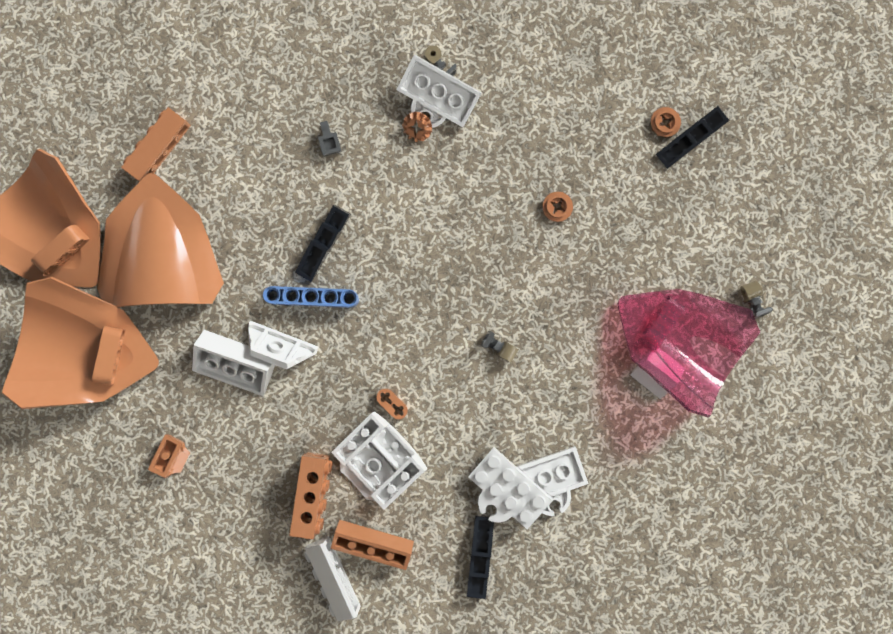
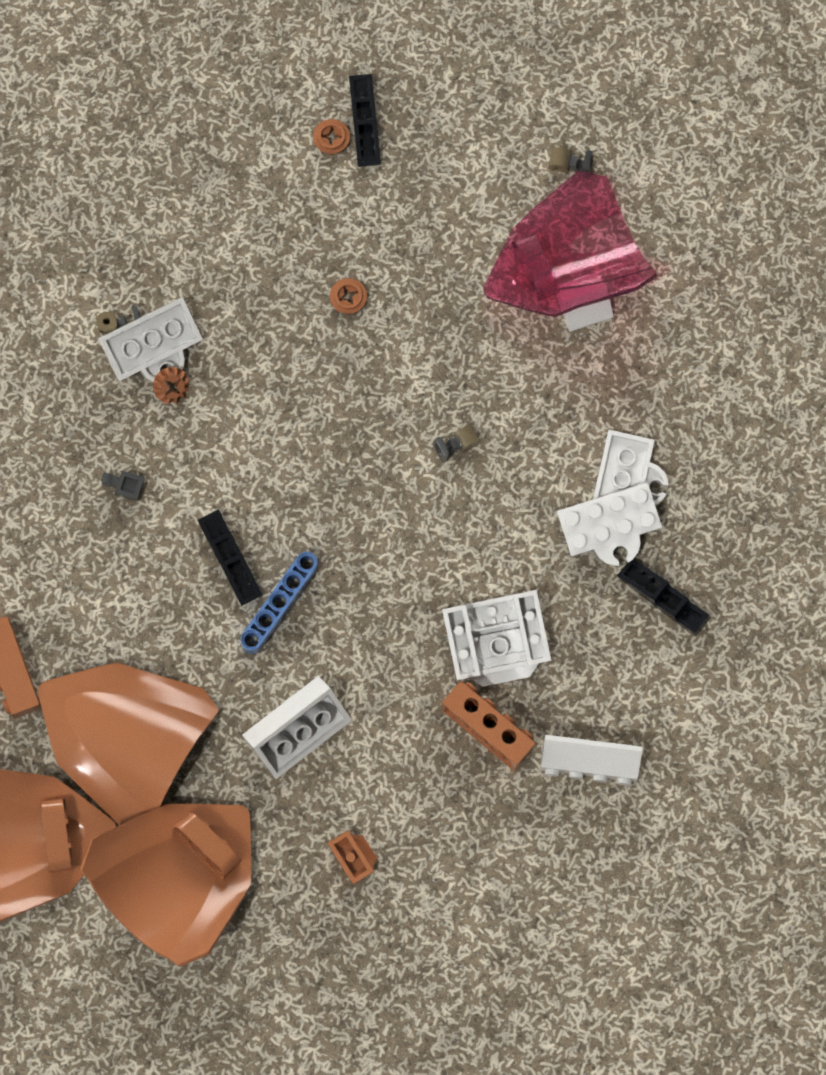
camera: 60 degrees left, 10 degrees down
(277, 347) = (308, 669): white wing -> none
(372, 544) = (580, 695): nougat brick -> none
(395, 400) = (447, 595): nougat beam -> none

